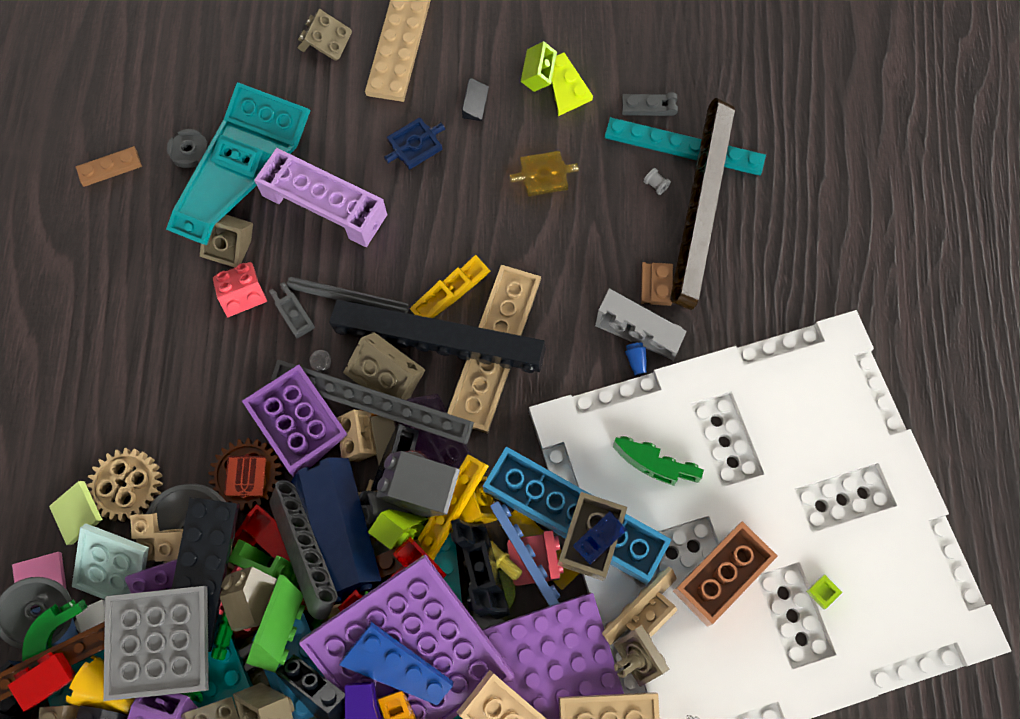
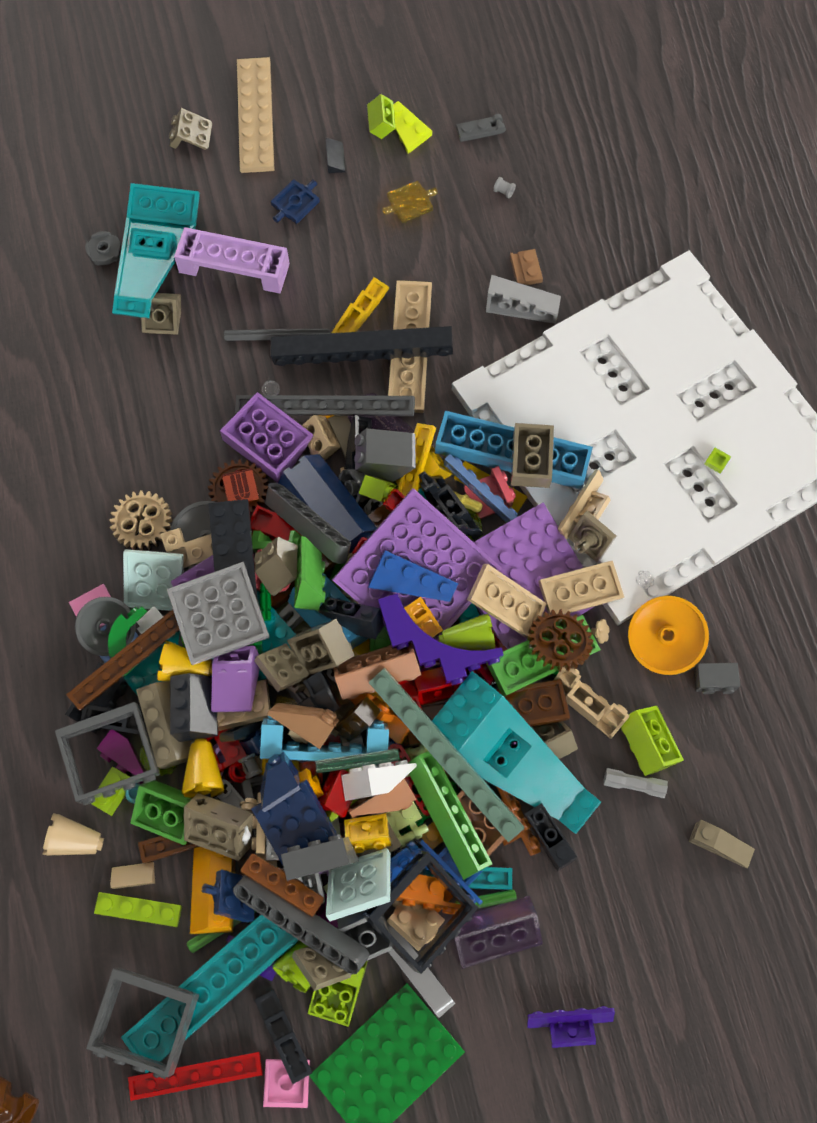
camera: 15 degrees left, 0 degrees up
(41, 681) = (136, 662): red brick -> none
(74, 510) = (107, 550): yellowish green tile -> none
(108, 166) = (39, 278): medium nougat plate -> none
(238, 289) = (185, 349): coral bracket -> none
(292, 312) = (235, 356): dark grey hinge -> none
(383, 368) = (326, 378): dark tan piece -> none
(600, 538) = (540, 450): clear blue slope -> none
(637, 357) = (526, 327): blue cone -> none
(646, 459) = (556, 398): green slope -> none
(679, 145) = (518, 155): teal plate -> none
(702, 205) = (546, 195): beam -> none
(725, 574) = (639, 464): nougat brick -> none

